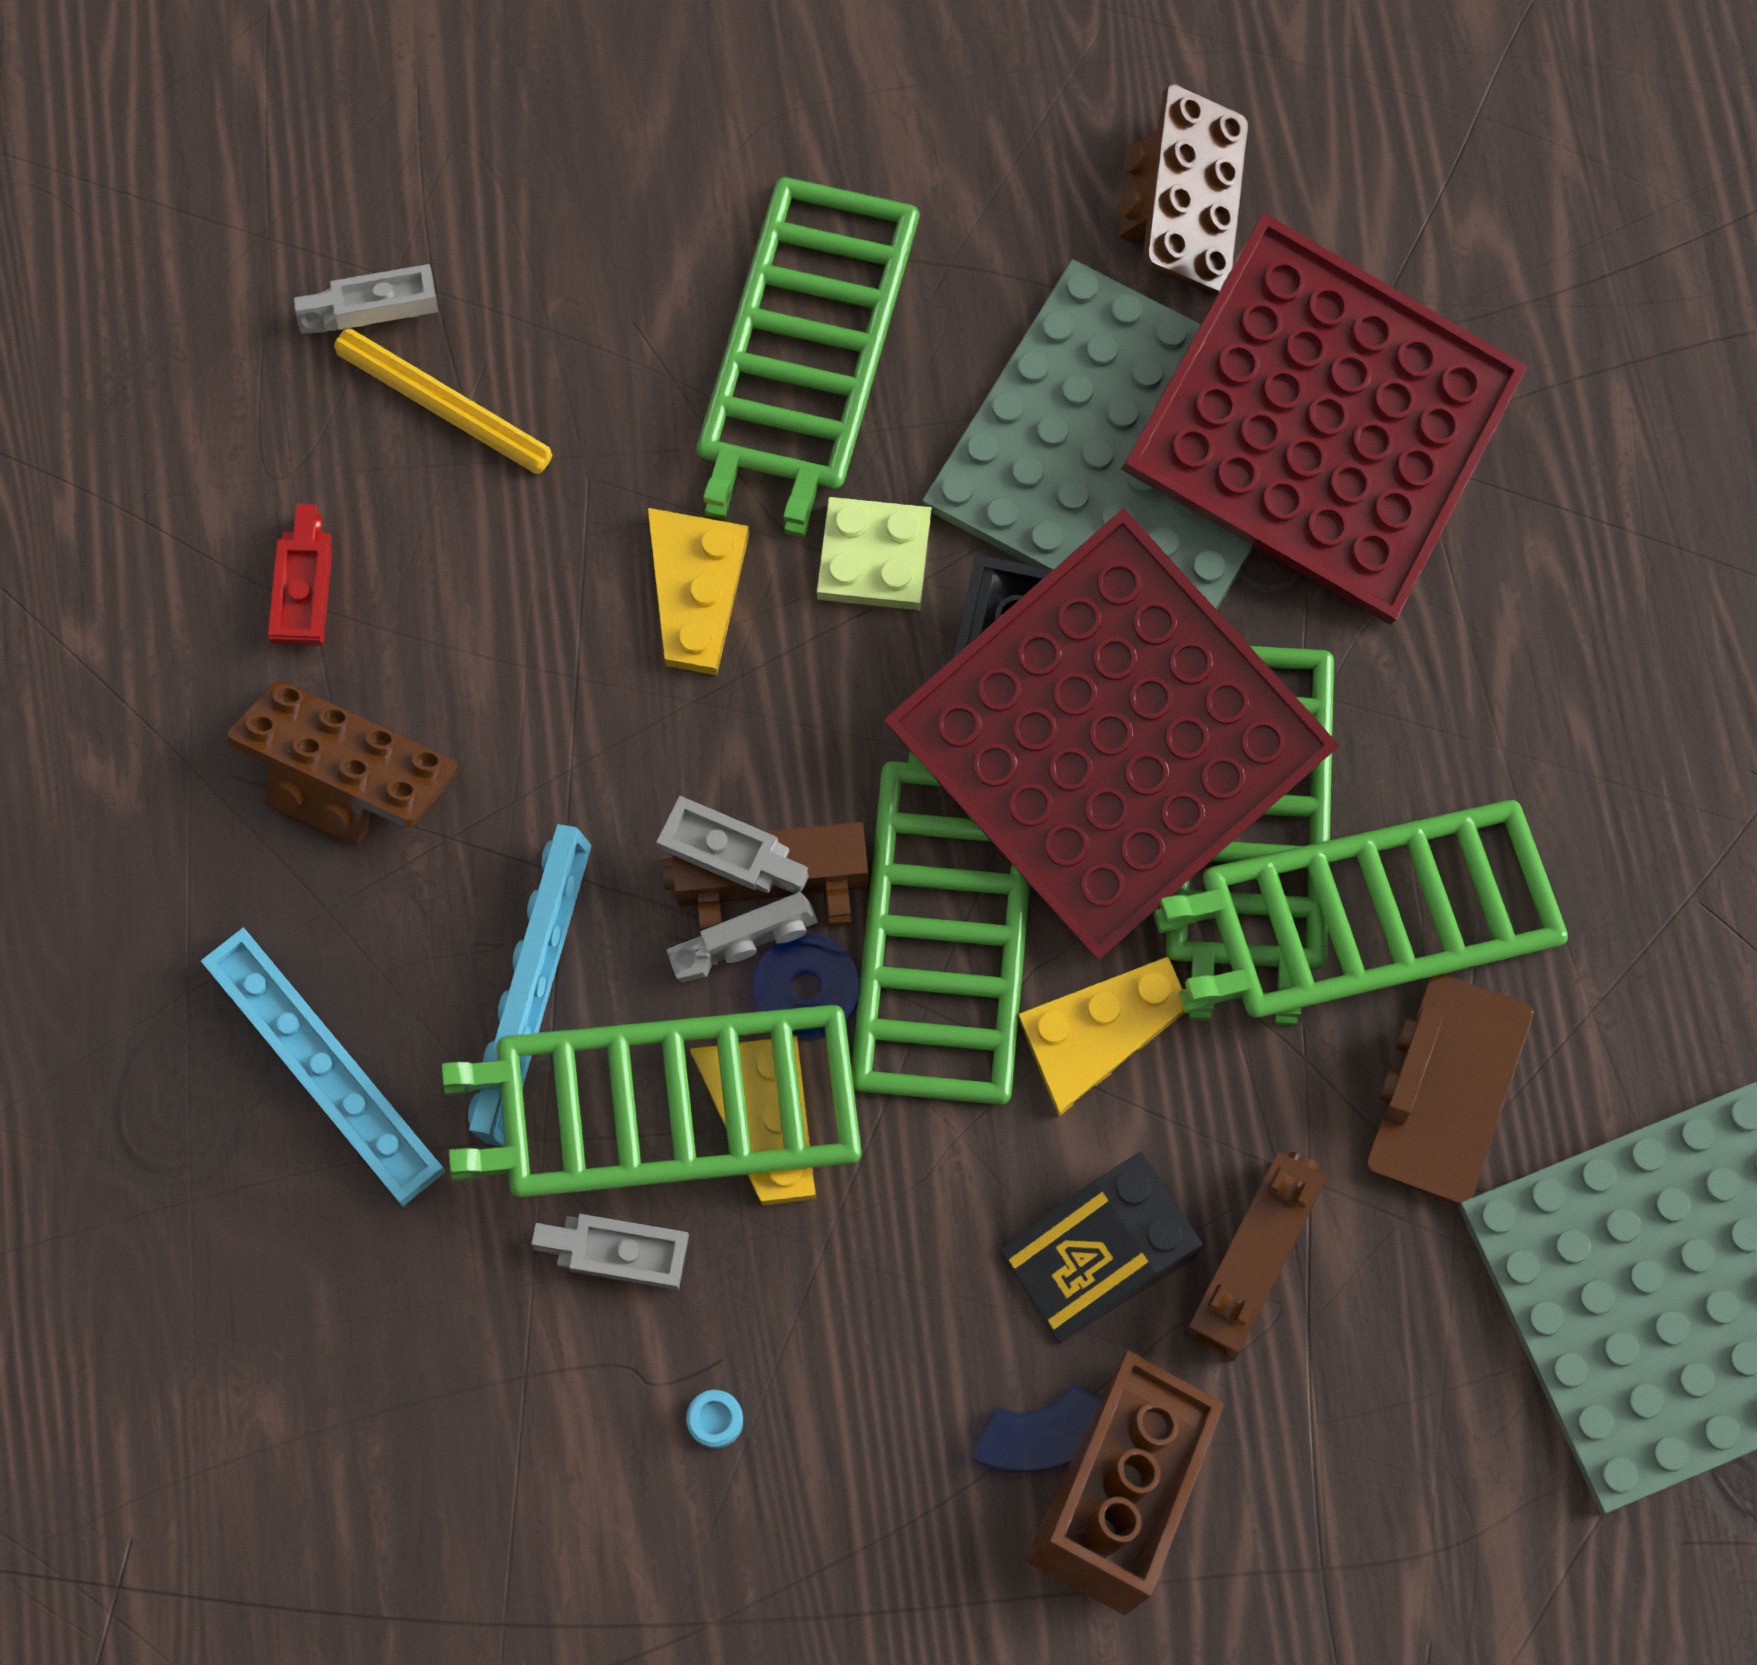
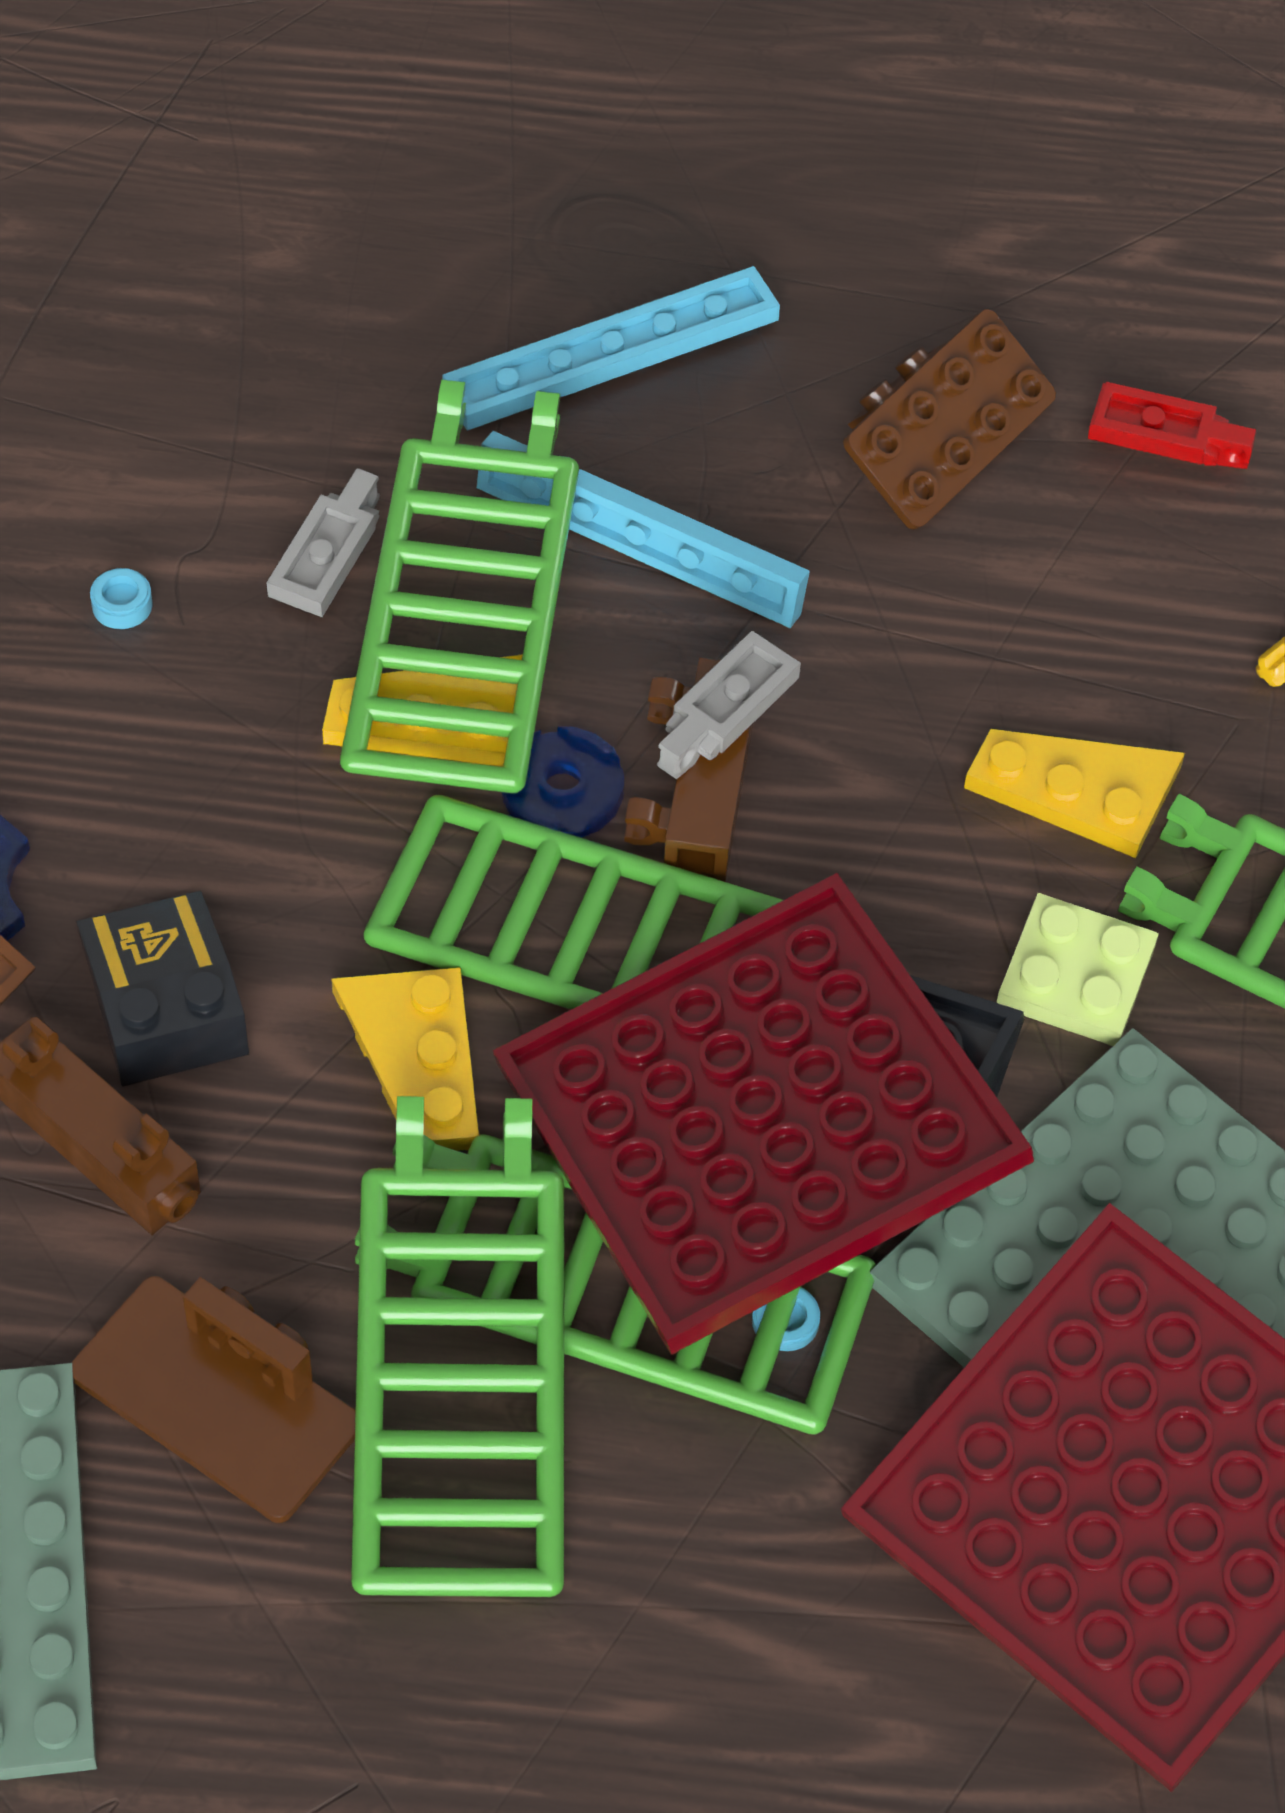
camera: 100 degrees right, 15 degrees down
(739, 936) = (632, 717): light grey hinge -> none

